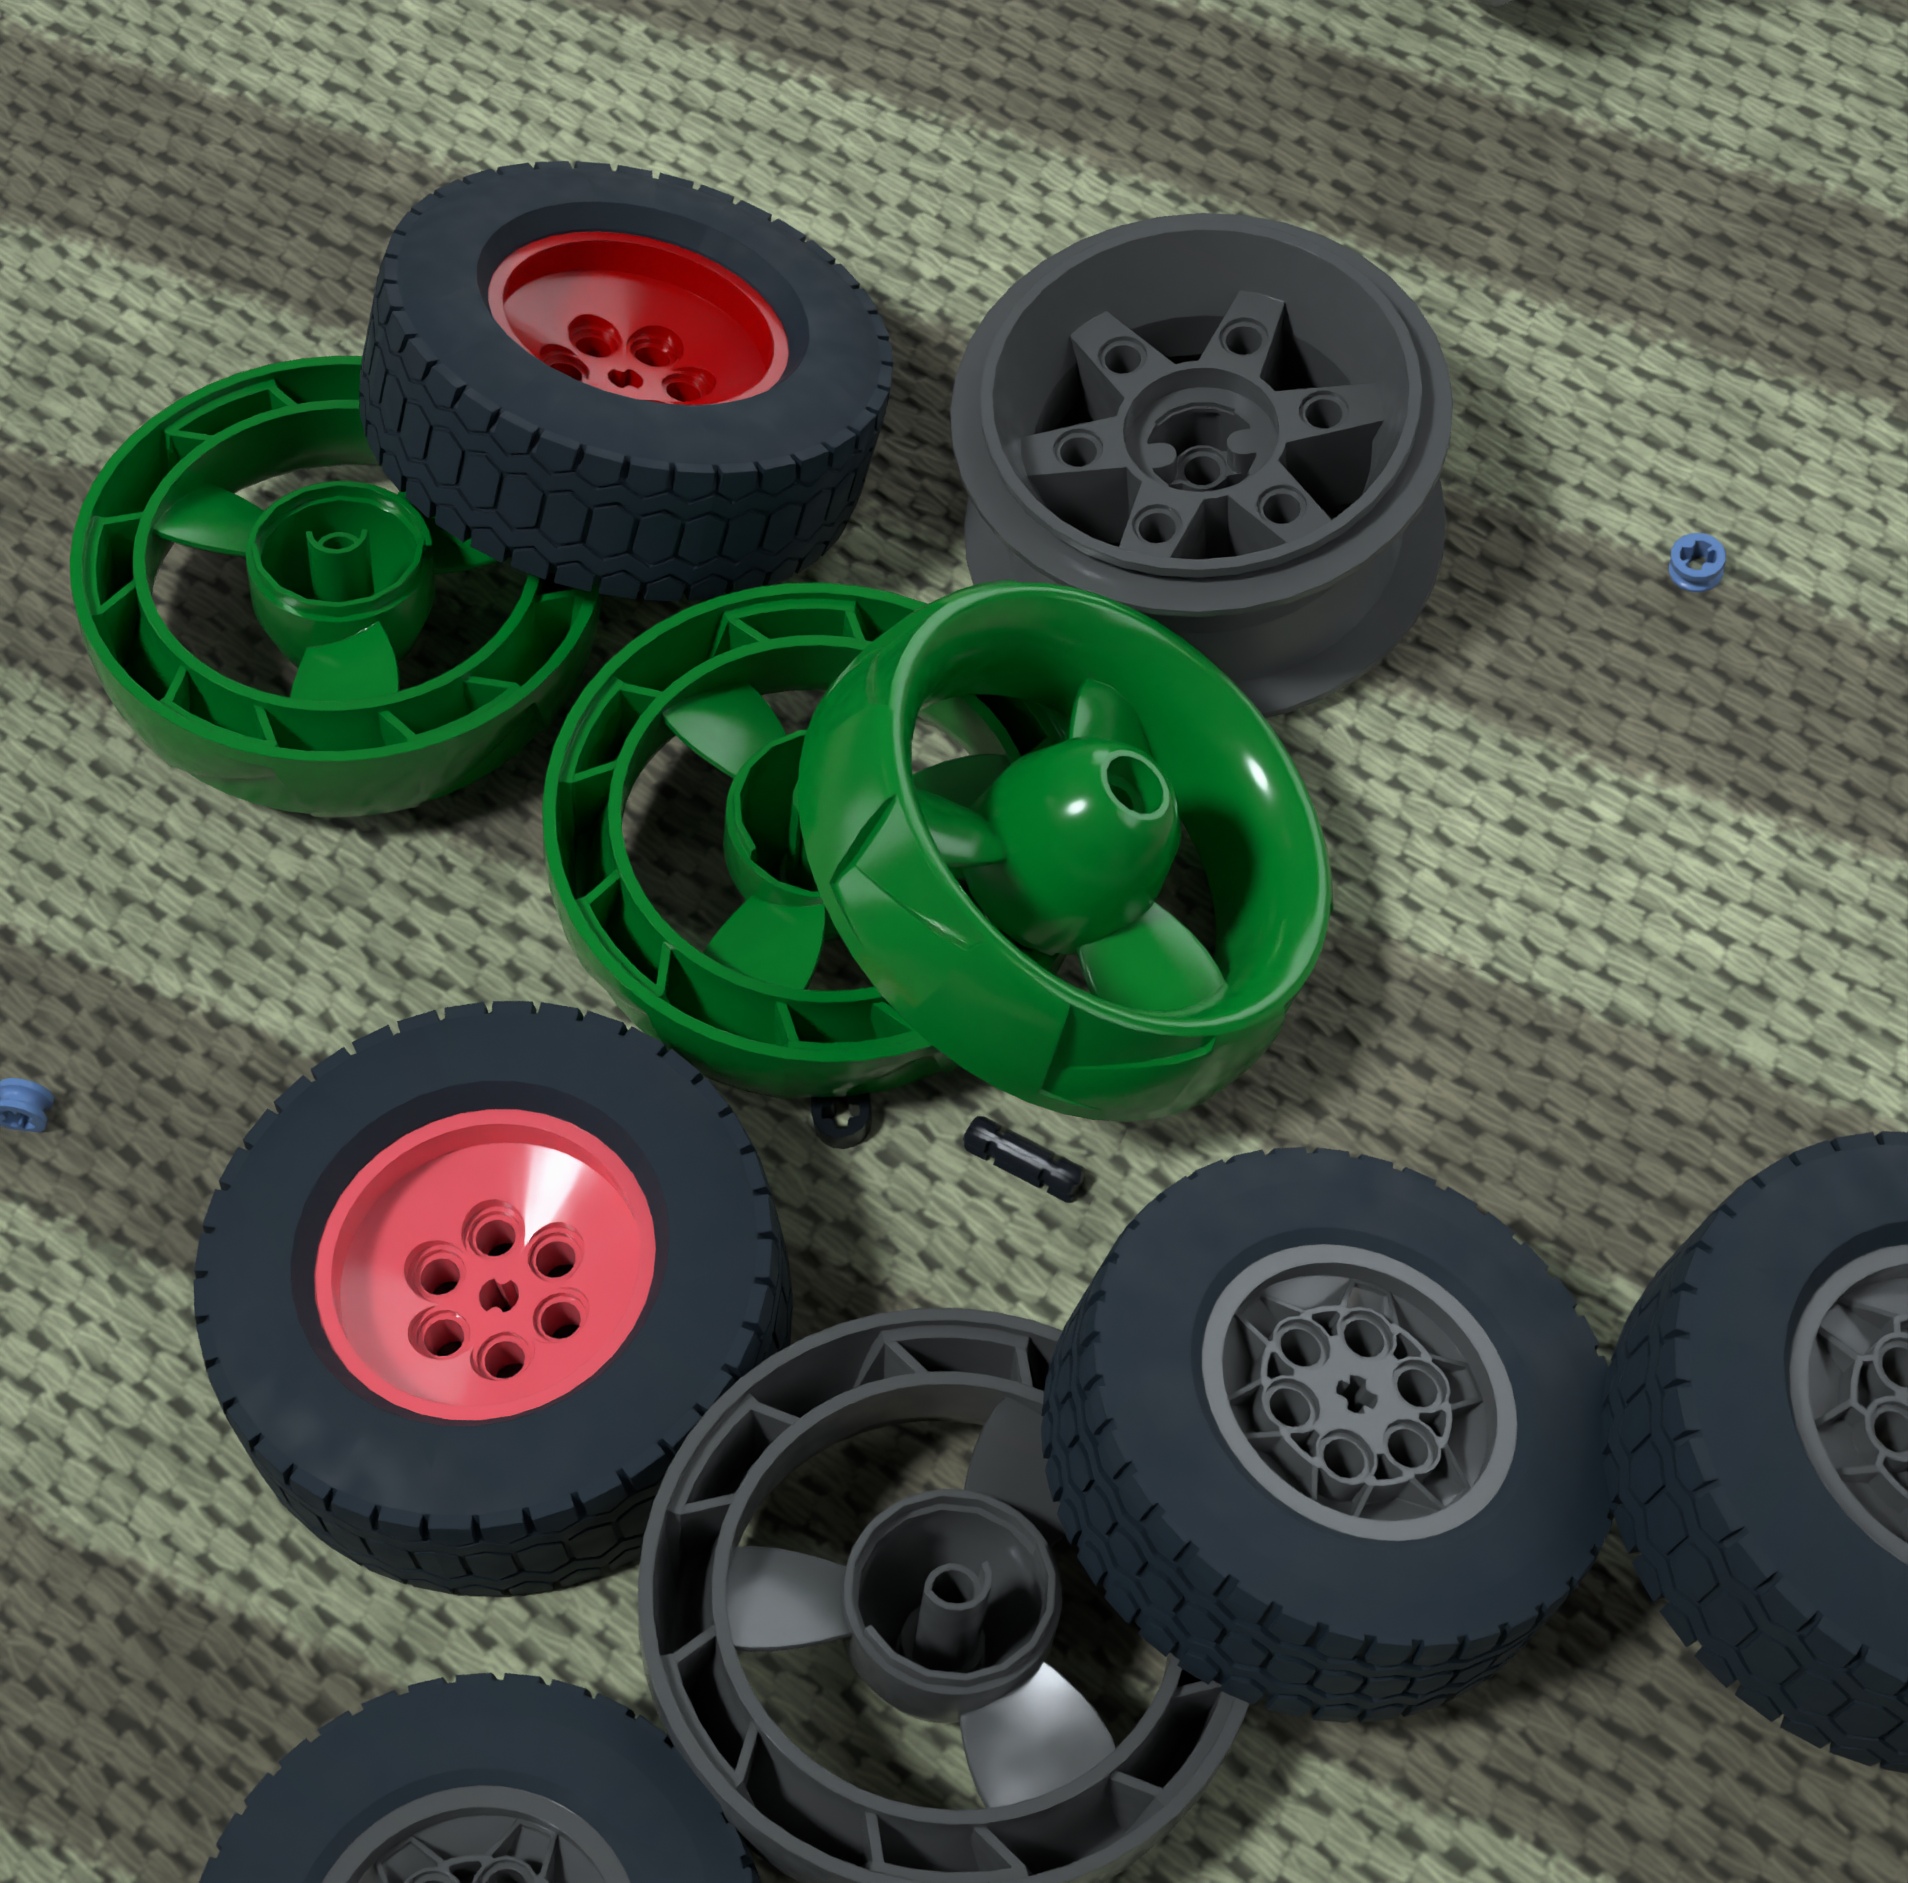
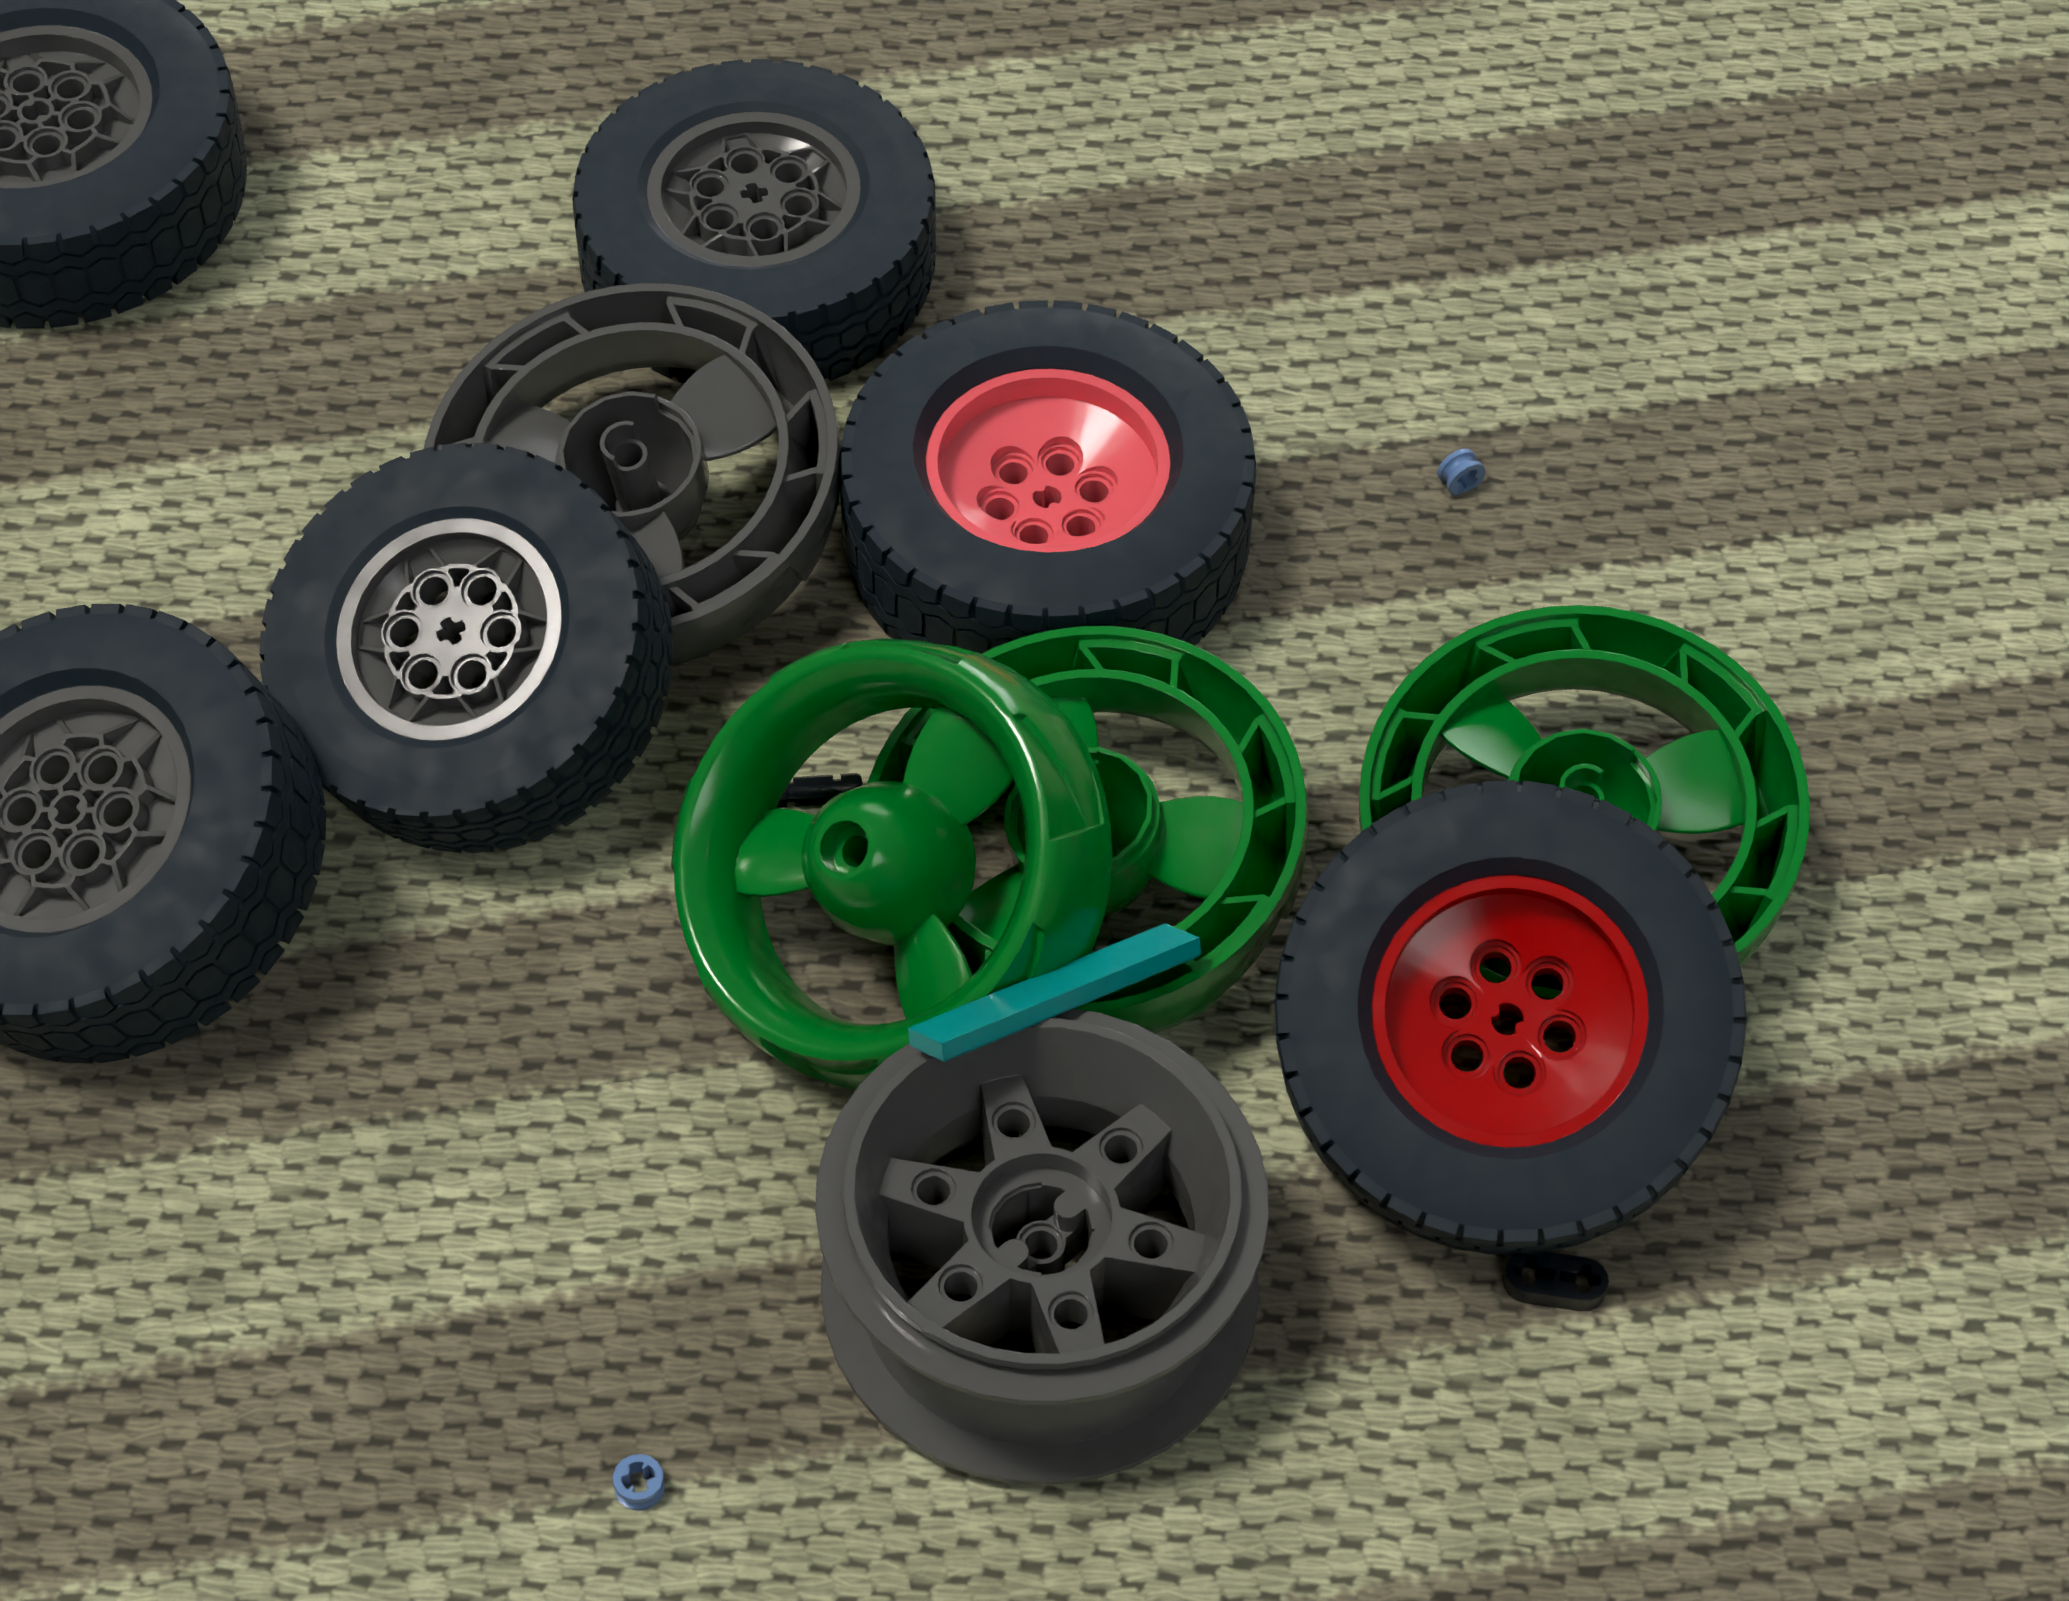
camera: 135 degrees right, 5 degrees down
(1083, 557) = (1054, 992): none -> teal tile

